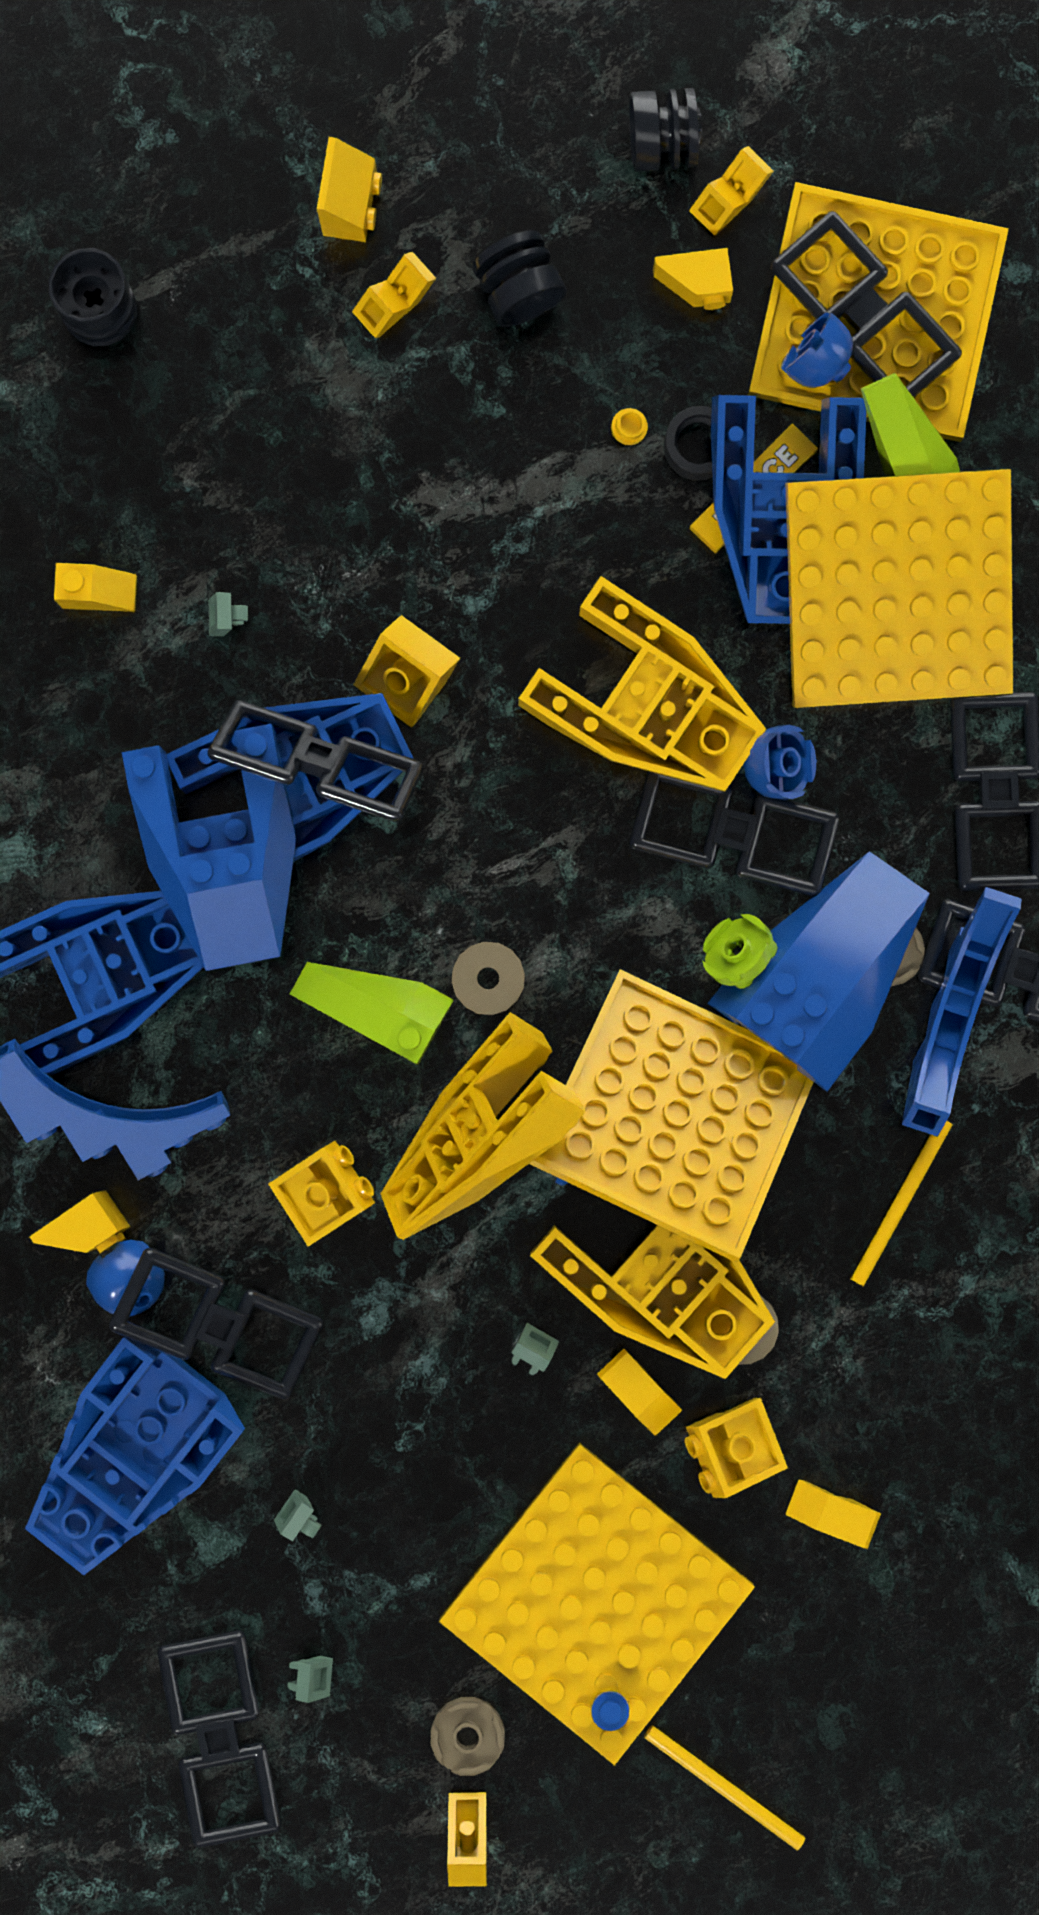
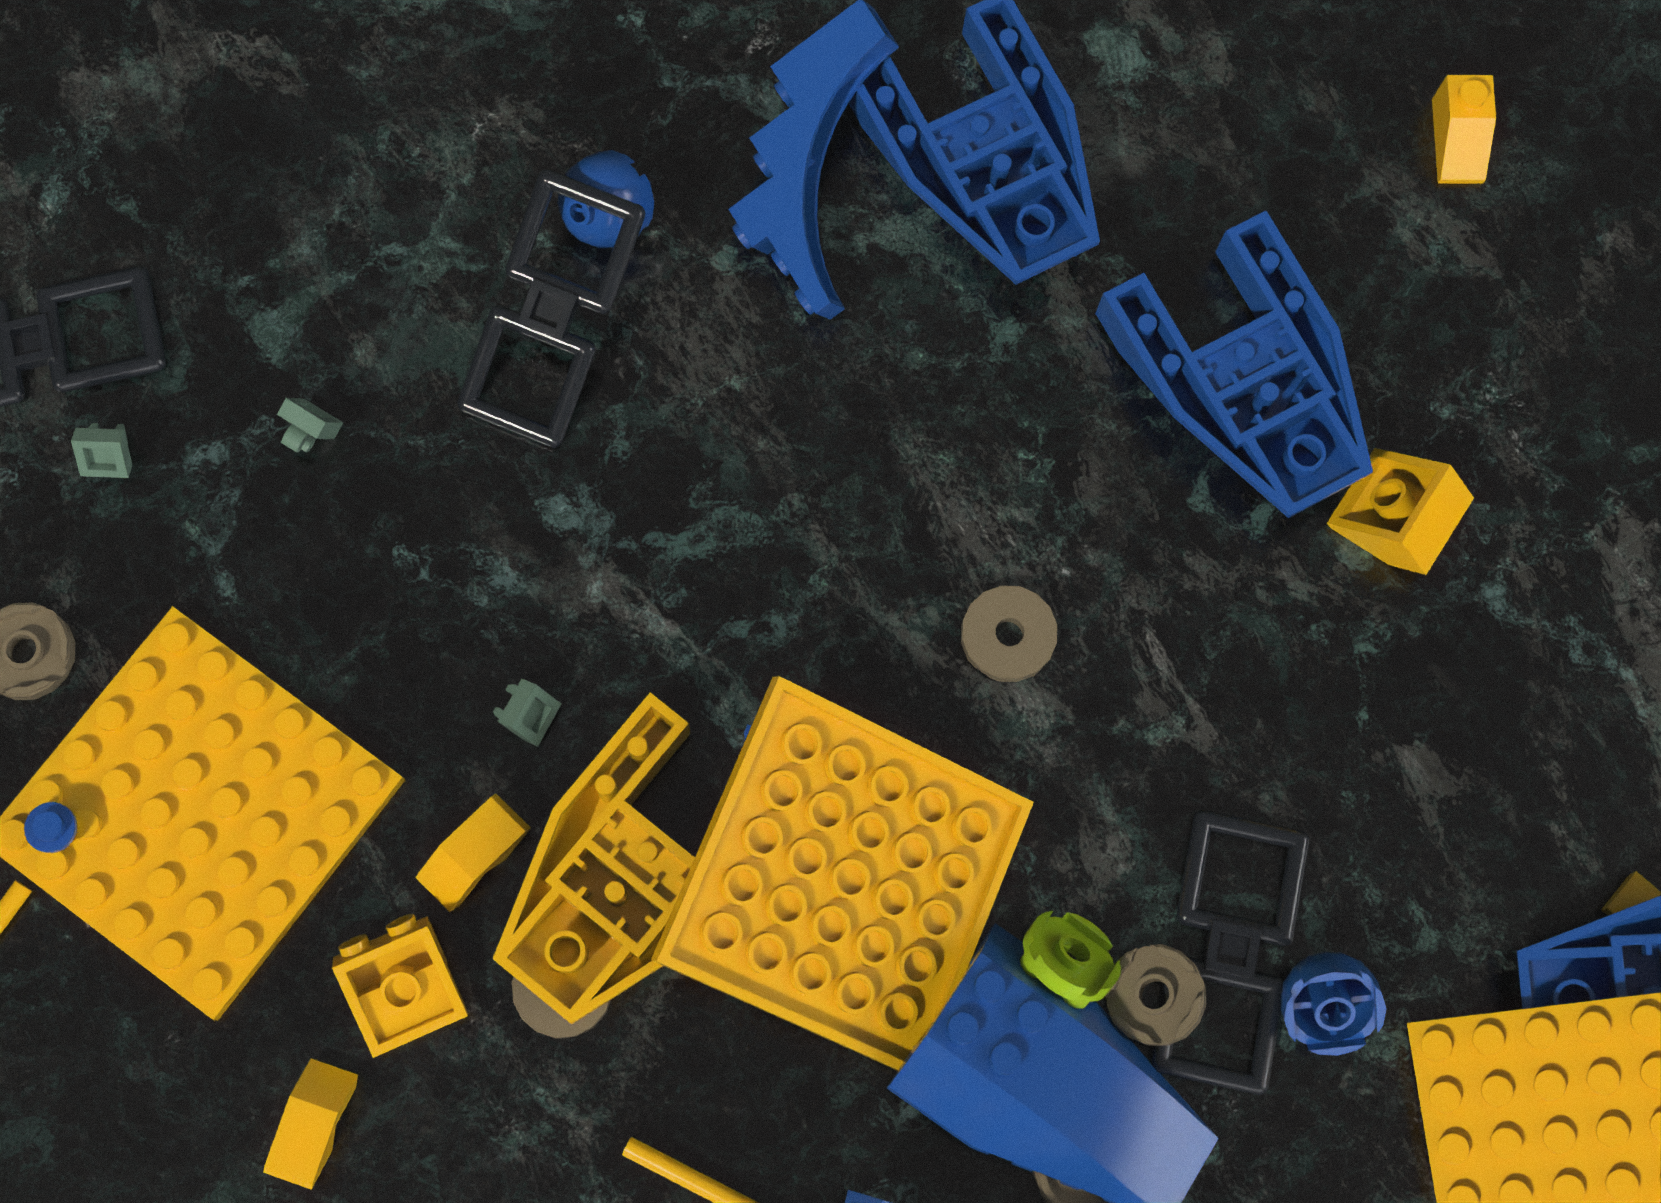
camera: 80 degrees right, 10 degrees down
(86, 1226) = (671, 148): yellow slope -> none
(131, 1452) = (389, 217): blue wedge -> none
(222, 871) = (1128, 289): blue wedge -> none
(224, 615) = (1448, 286): sand green tile -> none
(317, 759) = (1281, 387): black bar -> none
(323, 1192) = (722, 436): yellow plate -> none
(381, 1007) = (960, 503): lime wedge -> none
(463, 1147) = (814, 625): yellow wedge -> none
(667, 711) = (1389, 848): yellow wedge -> none
(771, 868) = (1185, 1001): none -> dark tan tile

